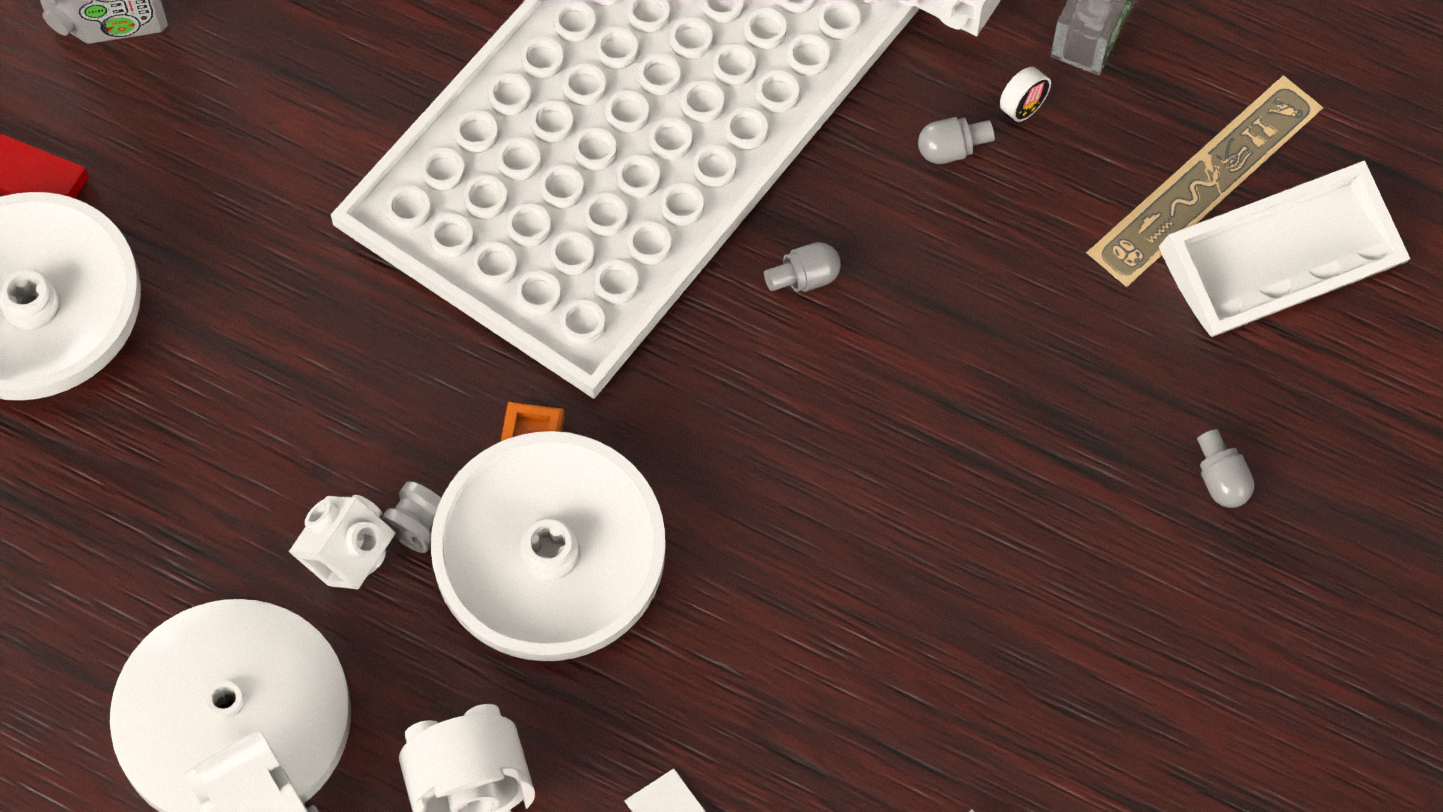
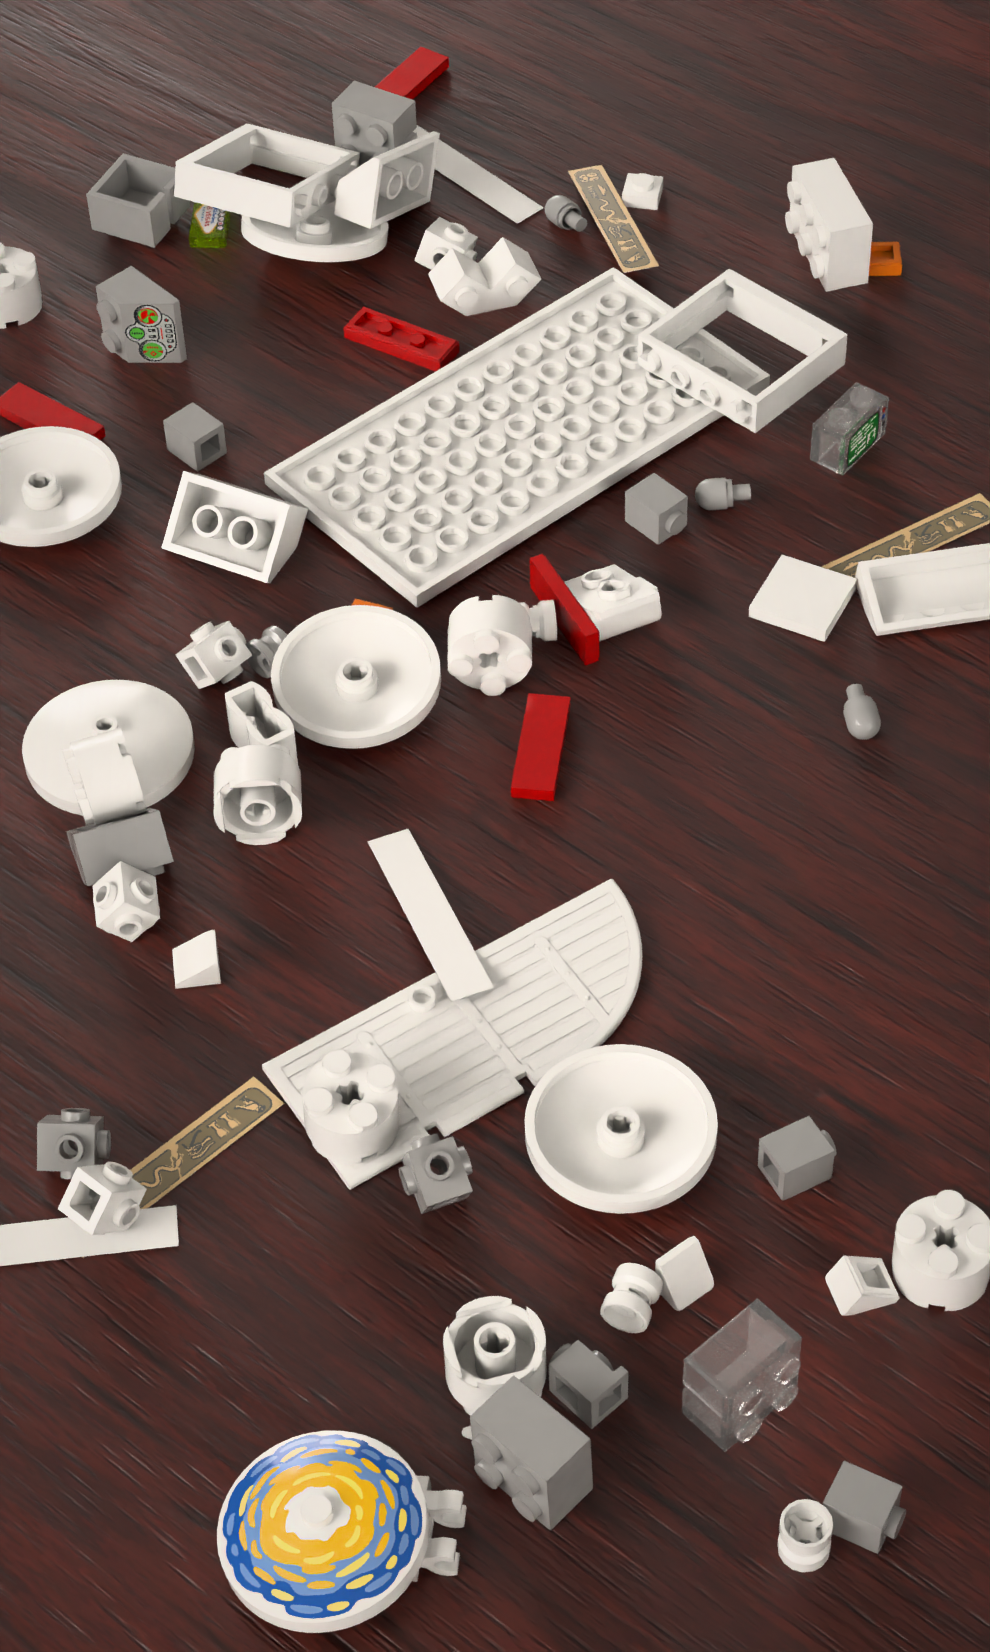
camera: 15 degrees right, 15 degrees down
(217, 166) = (195, 436): none -> light grey brick
(311, 312) = (233, 527): none -> white slope
(437, 659) = (255, 719): none -> white brick
(718, 461) = (489, 643): none -> white brick
(765, 400) = (543, 620): none -> white wheel
(796, 372) = (570, 615): none -> red tile
(805, 268) = (590, 552): light grey cylinder -> none
(819, 603) = (540, 747): none -> red tile
(851, 345) = (616, 600): none -> white piece
(877, 183) = (656, 508): none -> light grey brick
(1025, 93) = (781, 472): white tile -> none
(1101, 292) = (803, 598): none -> white tile

